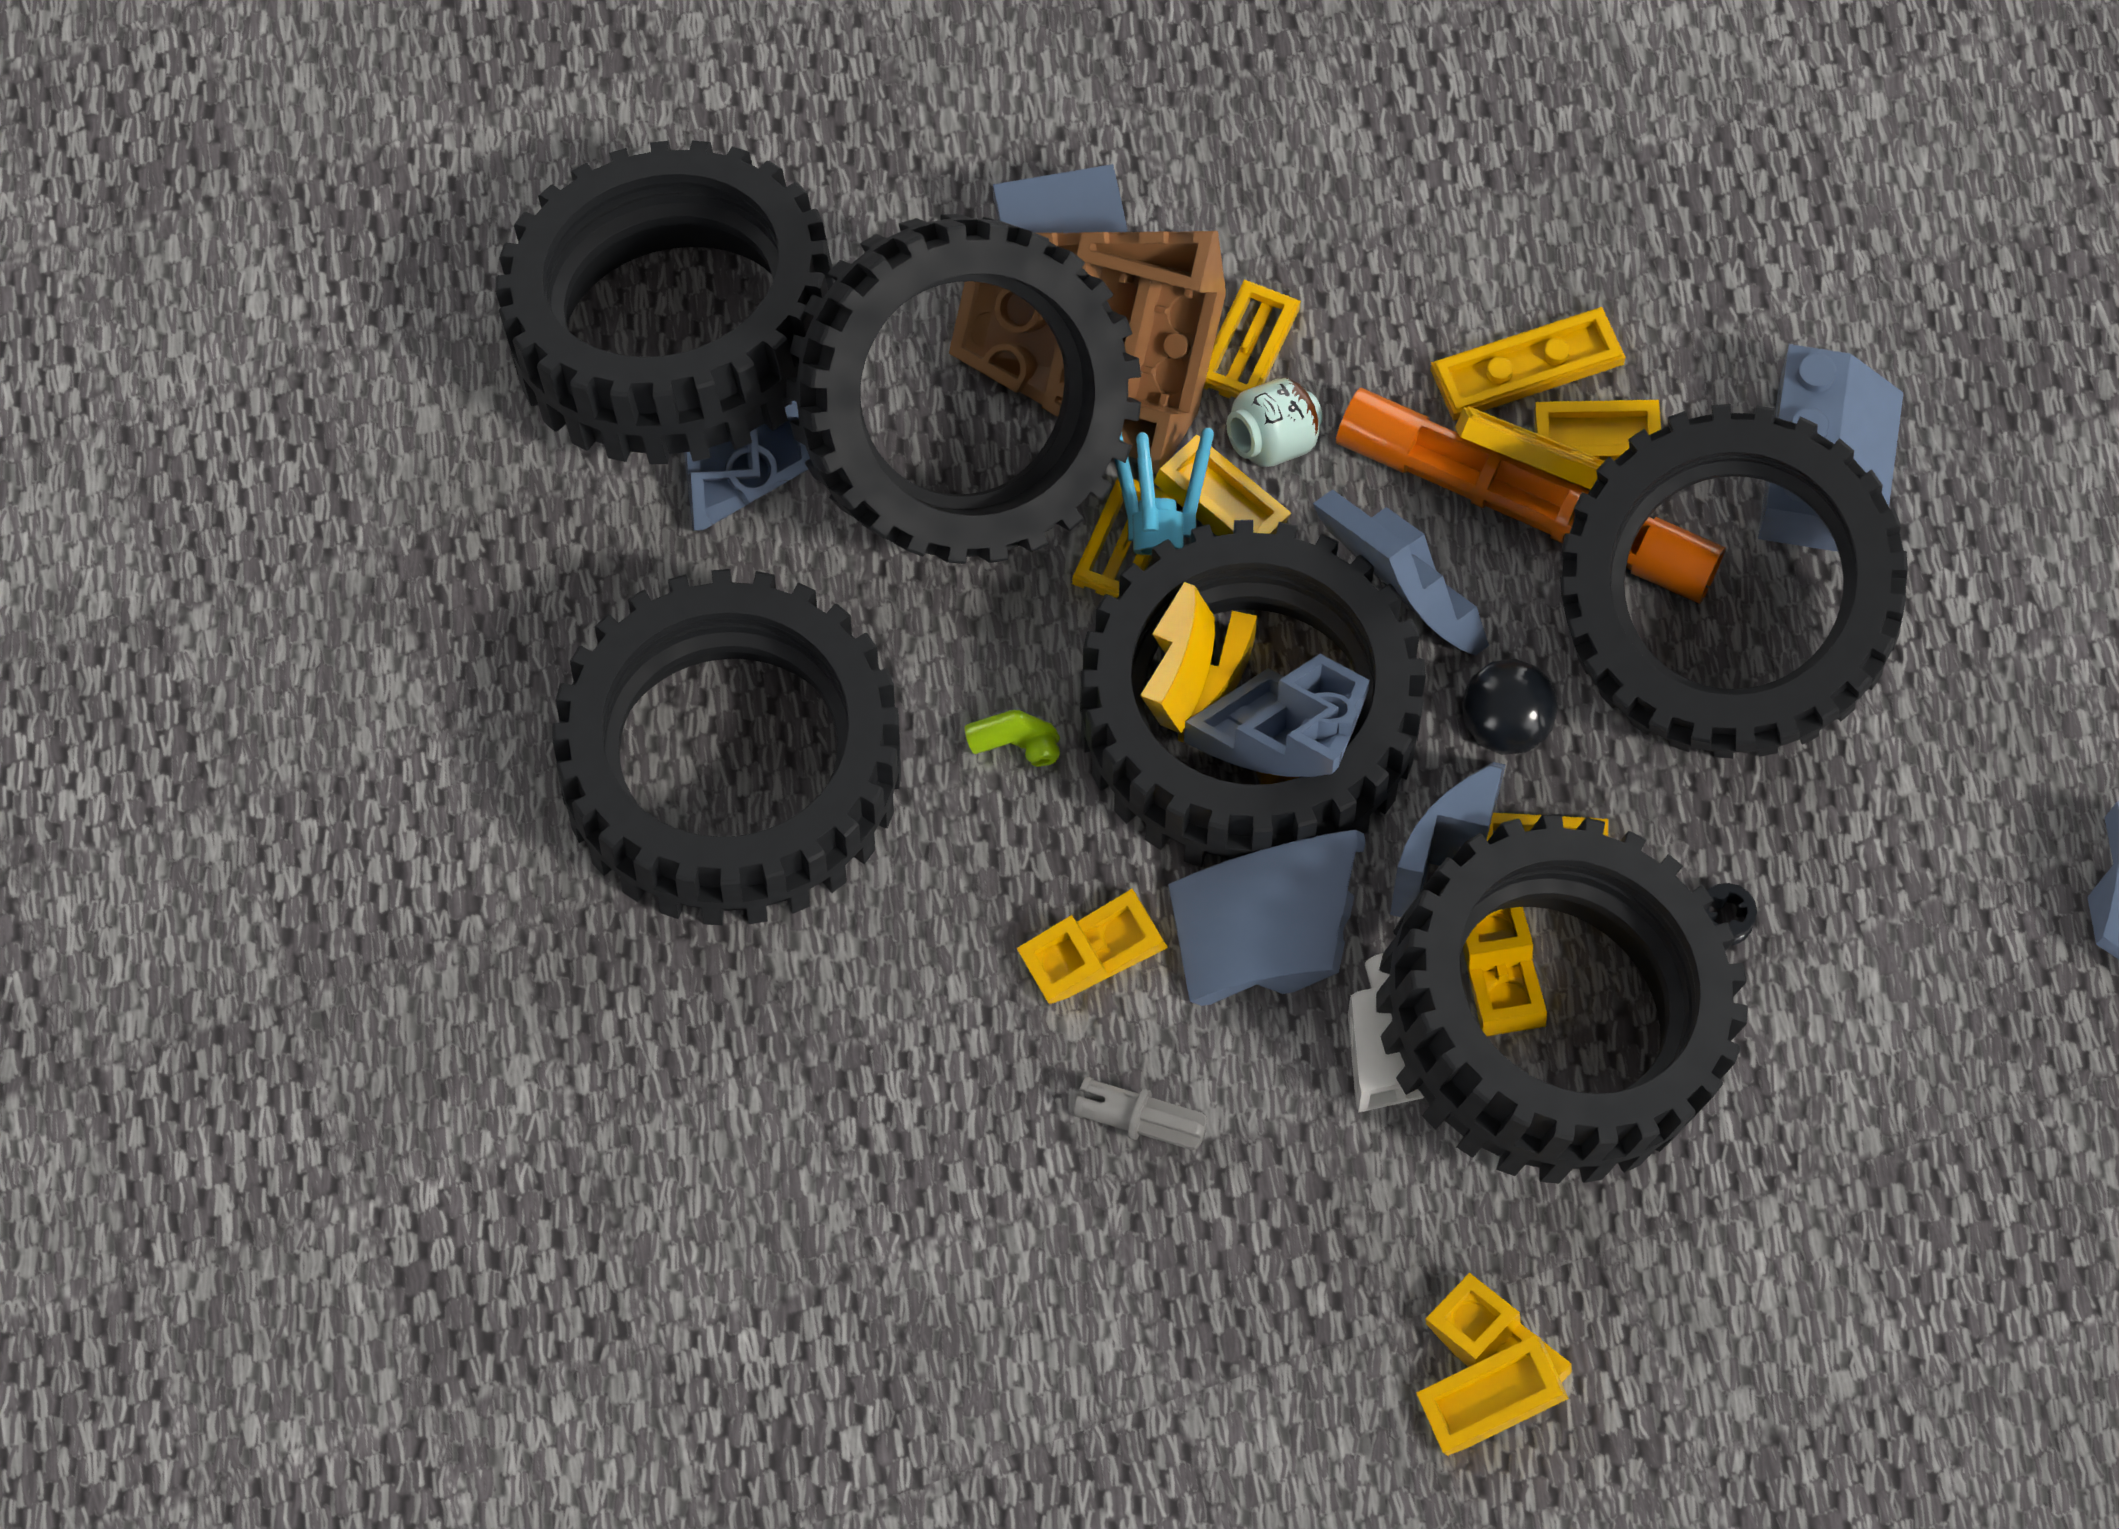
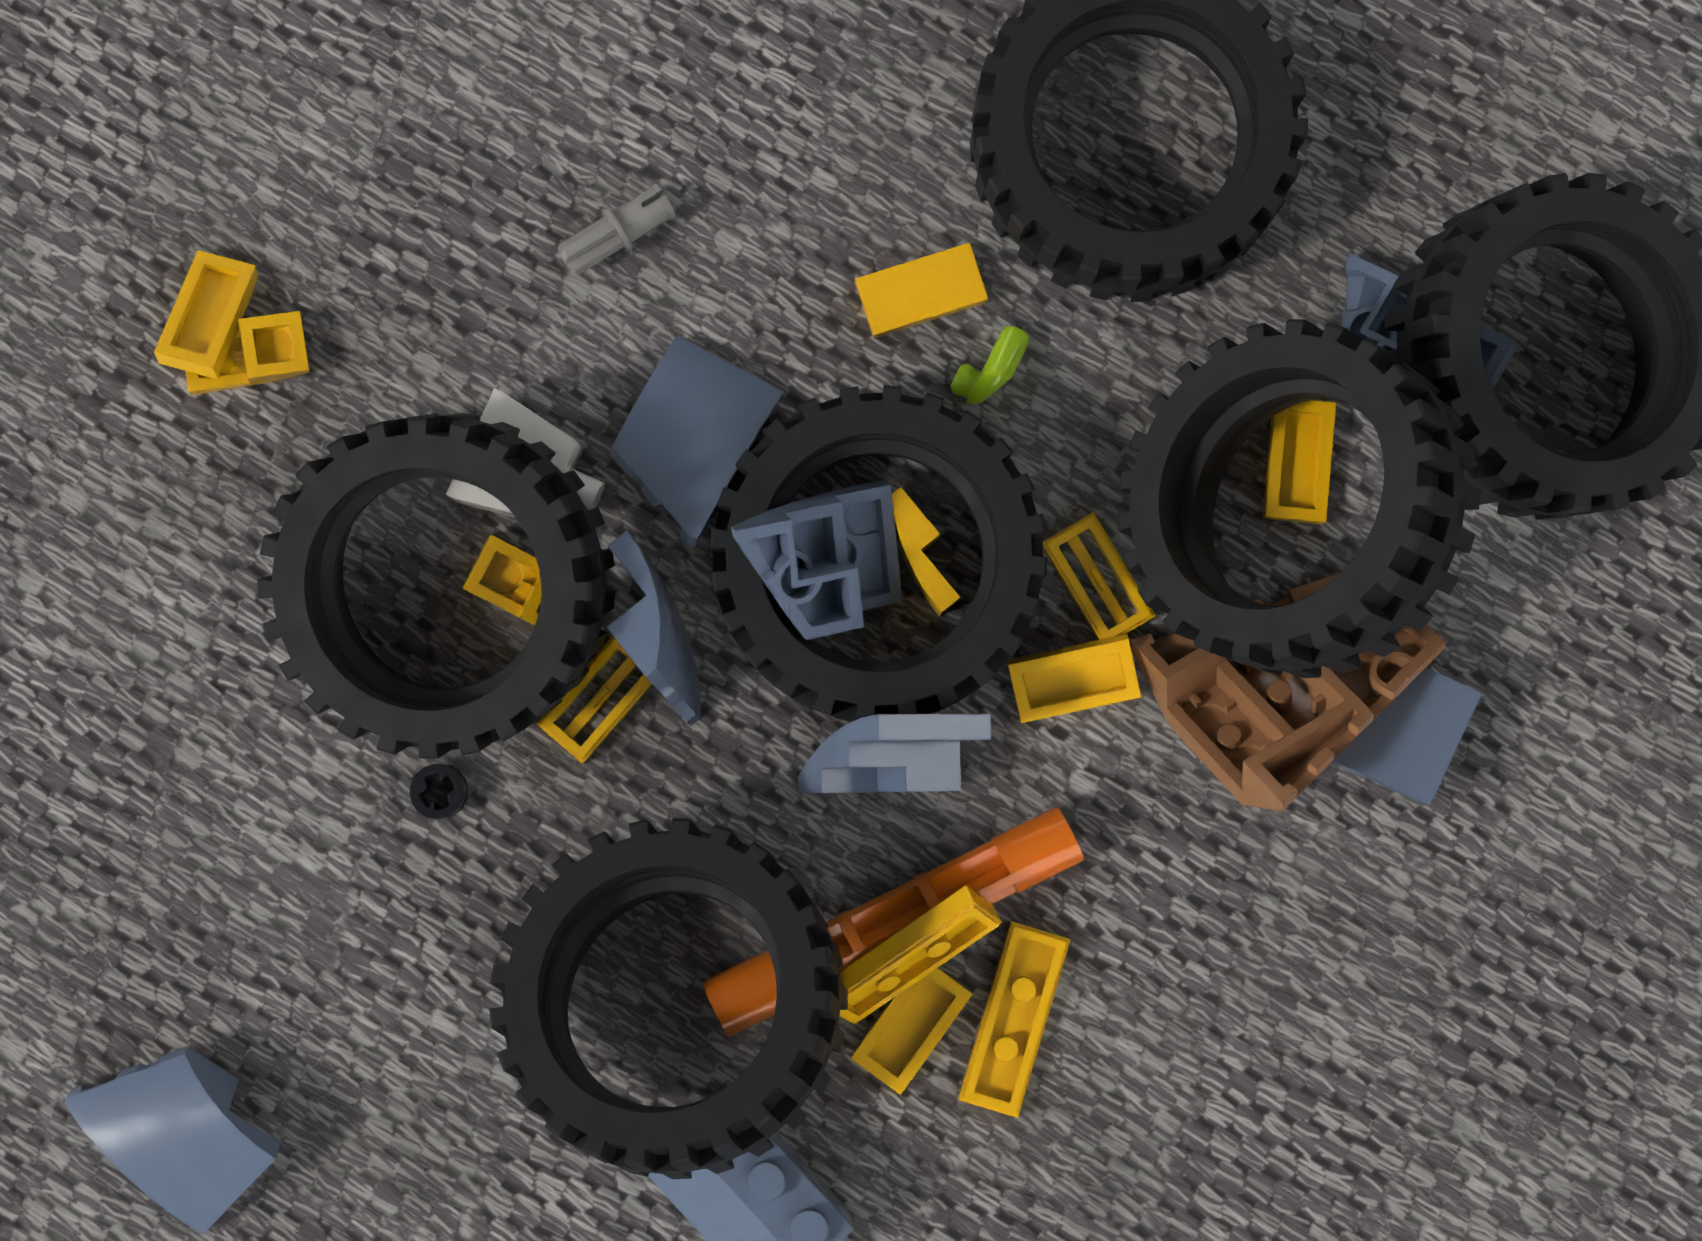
camera: 125 degrees right, 20 degrees up
(922, 444) = (1300, 463): none -> yellow tile
(992, 838) = (921, 290): none -> yellow tile
(1092, 949) = (776, 298): yellow slope -> none
(1154, 518) = (1083, 598): medium azure plant -> none
(1188, 643) = (948, 530): yellow slope -> none
(1230, 384) = (1223, 855): yellow tile -> none
(1274, 422) = (1107, 768): light aqua head -> none
(1509, 706) = (732, 764): black hair -> none

